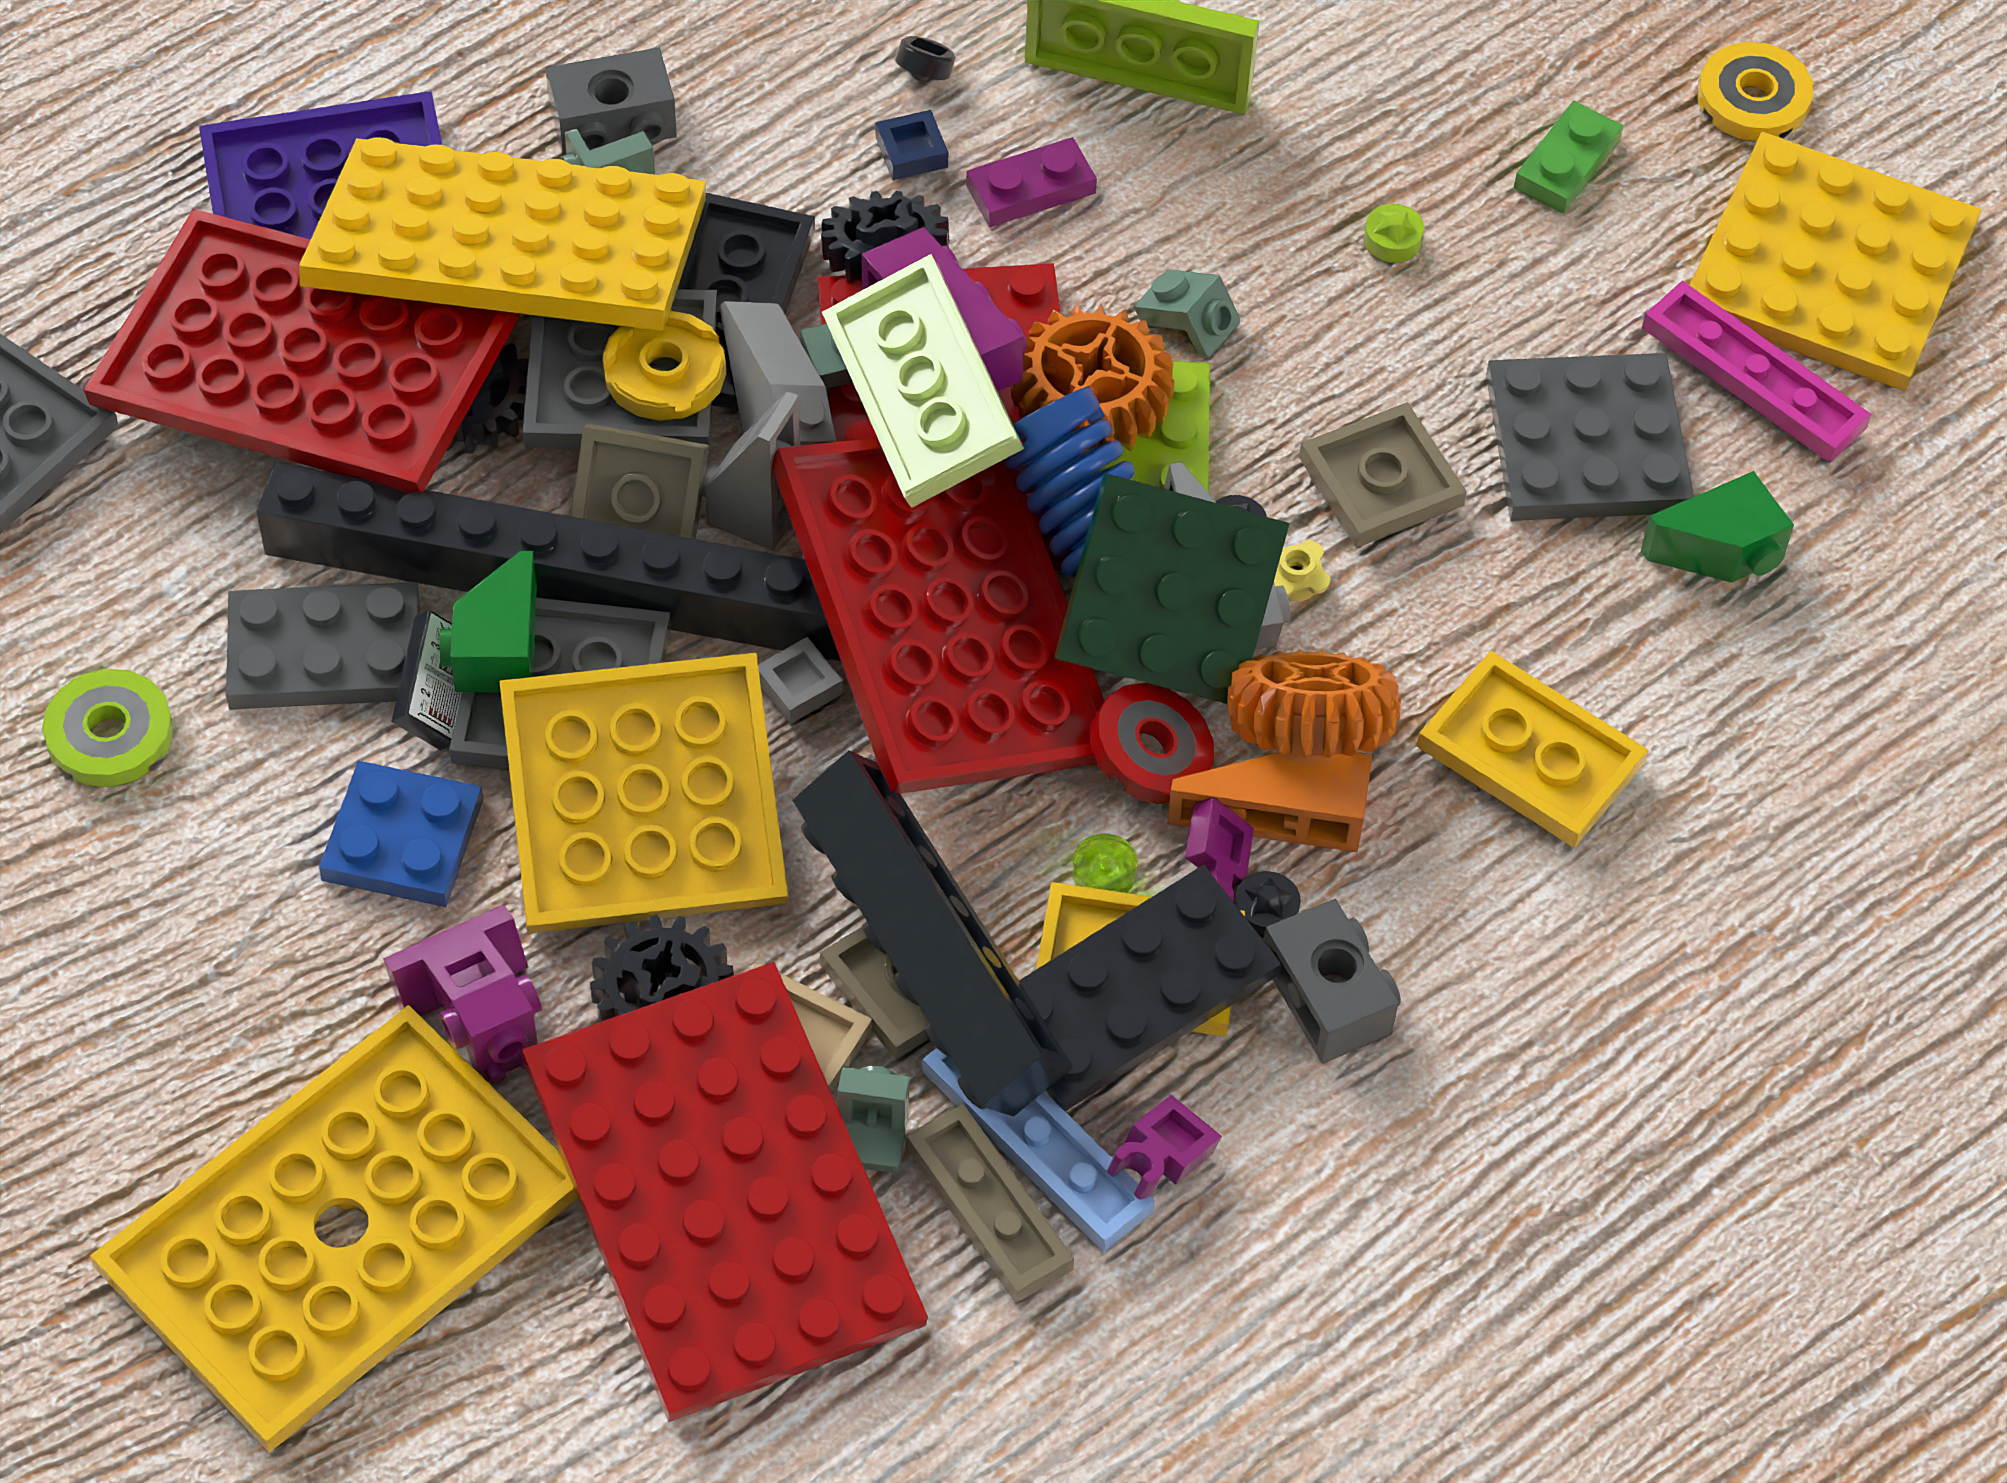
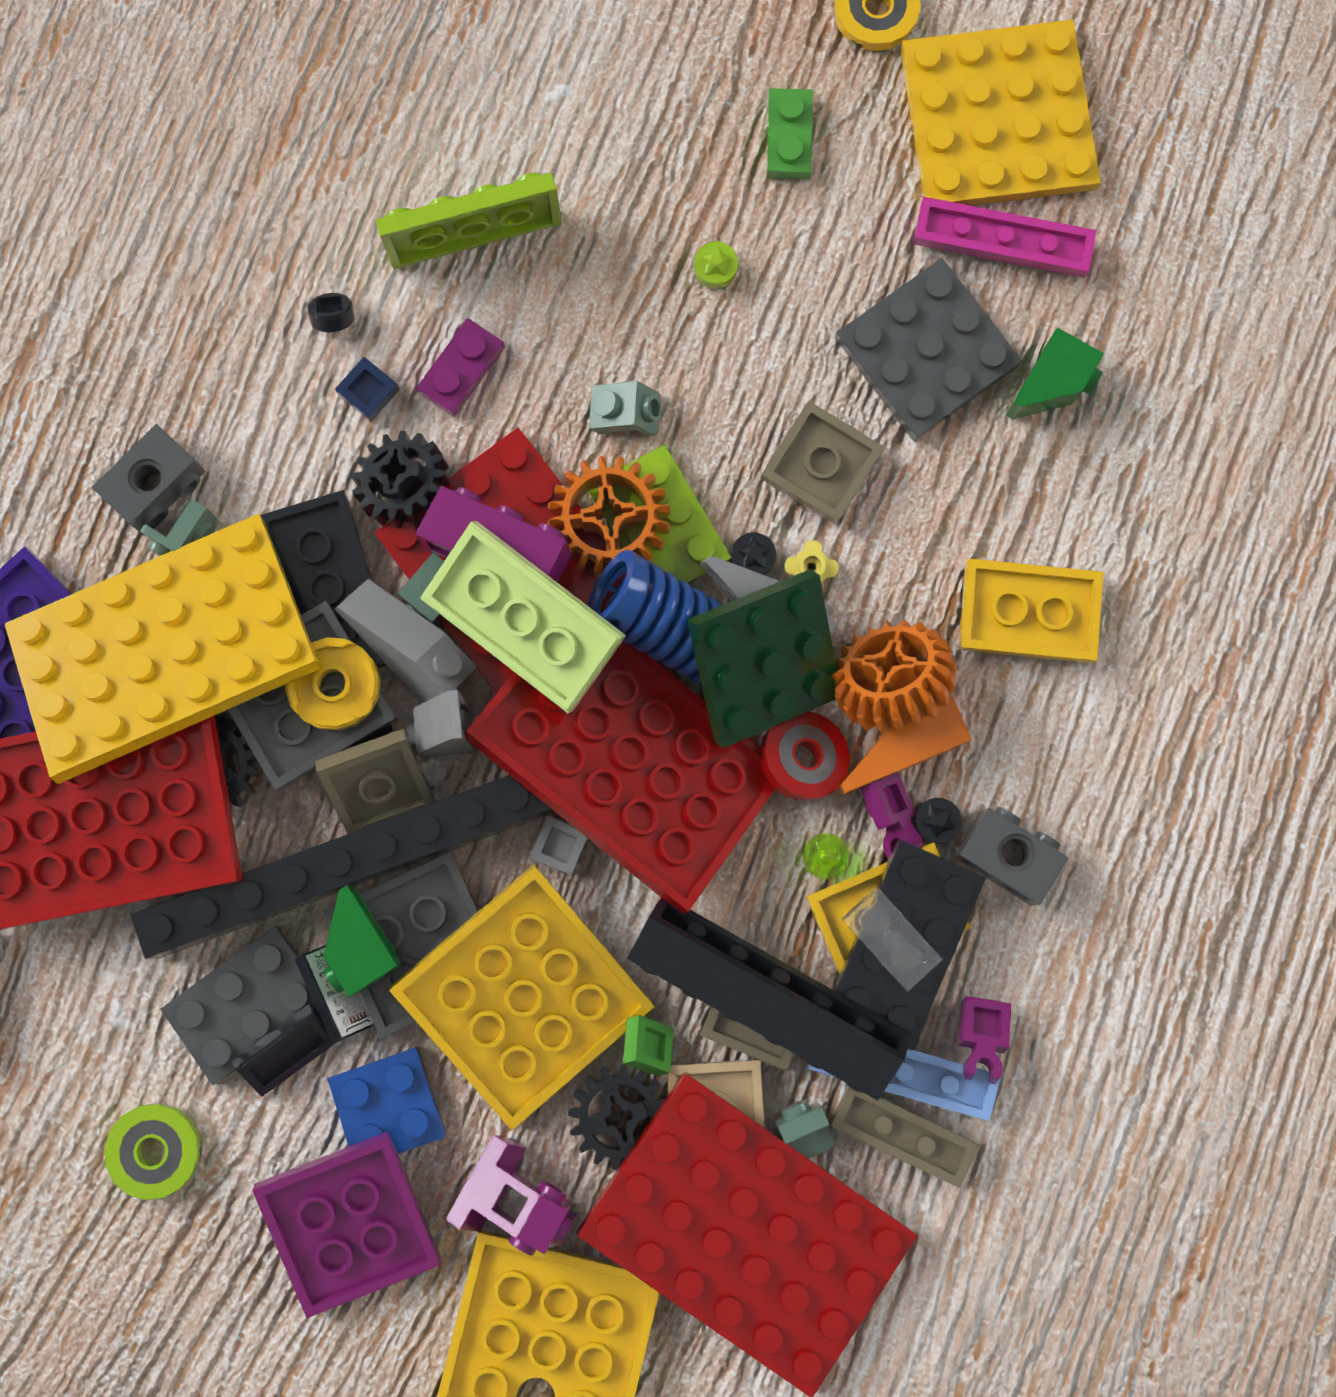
camera: 30 degrees left, 25 degrees up
(267, 907) = (347, 1224): none -> magenta plate
(332, 705) = (283, 1051): none -> black tile
(751, 923) = (648, 1045): none -> bright green plate
(1118, 943) = (891, 939): none -> clear plate

